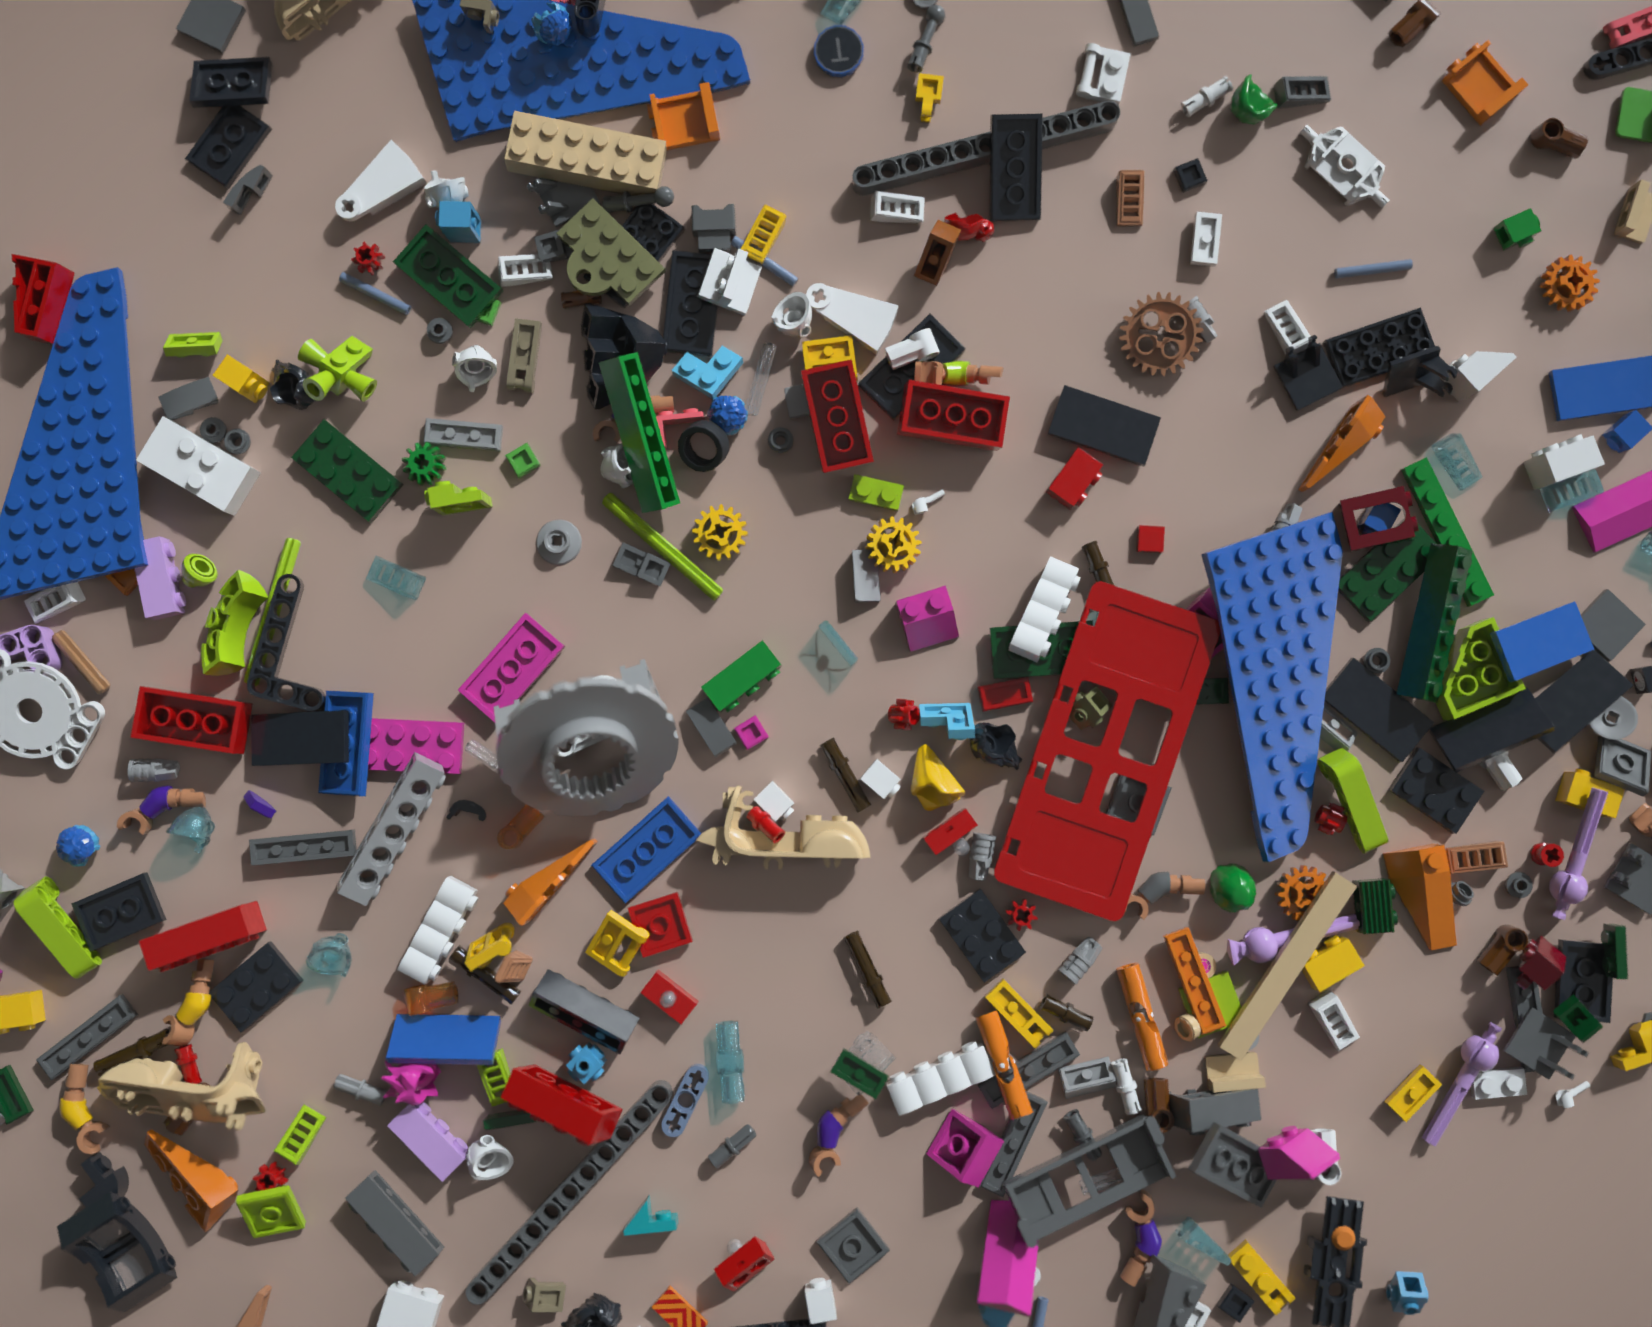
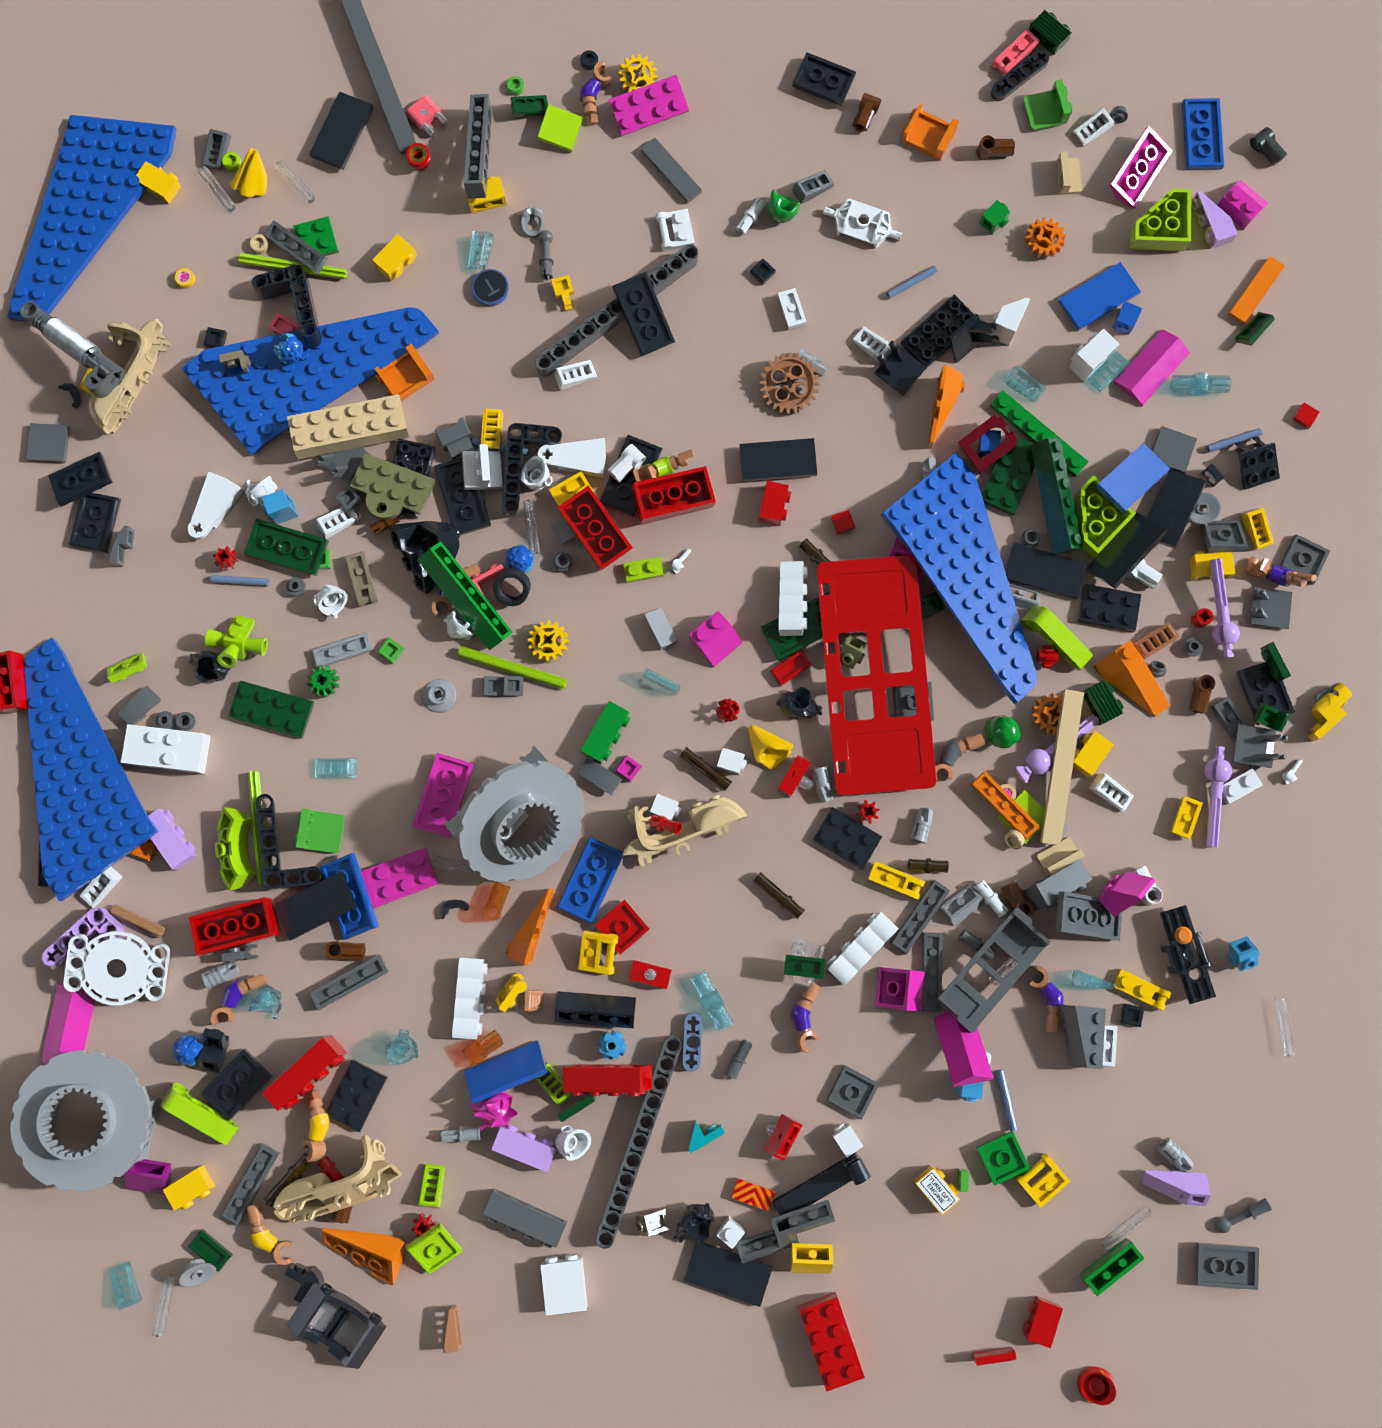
camera: 25 degrees left, 5 degrees down
(107, 860) = (214, 1050): none -> black brick
(181, 755) = (235, 954): none -> dark grey plate
(198, 571) = (195, 822): lime brick -> none
(241, 379) = (172, 676): yellow brick -> none
(258, 804) = (306, 966): dark purple tile -> none
(315, 808) = (347, 950): none -> reddish brown piece
(342, 647) = (319, 831): none -> bright green bracket
(363, 889) = (407, 891): light grey brick -> none
(450, 499) = (351, 697): lime plate -> none
(486, 976) = (515, 1016): dark brown pin -> none
(663, 197) = (412, 432): dark grey pin -> none
(708, 377) = (493, 540): medium azure plate -> none
(777, 288) = (516, 461): none -> black beam
(883, 542) = (663, 603): yellow gear -> none
(937, 252) = (615, 391): dark orange brick -> none
(955, 715) = (765, 696): medium azure plate -> none
(971, 226) = (629, 367): red hair -> none
(998, 1048) = (890, 908): orange piece -> none
(1130, 176) = (725, 287): nougat slope -> none
(1143, 1020) = (987, 853): orange piece -> none
(1541, 964) = (1229, 691): dark red brick -> none

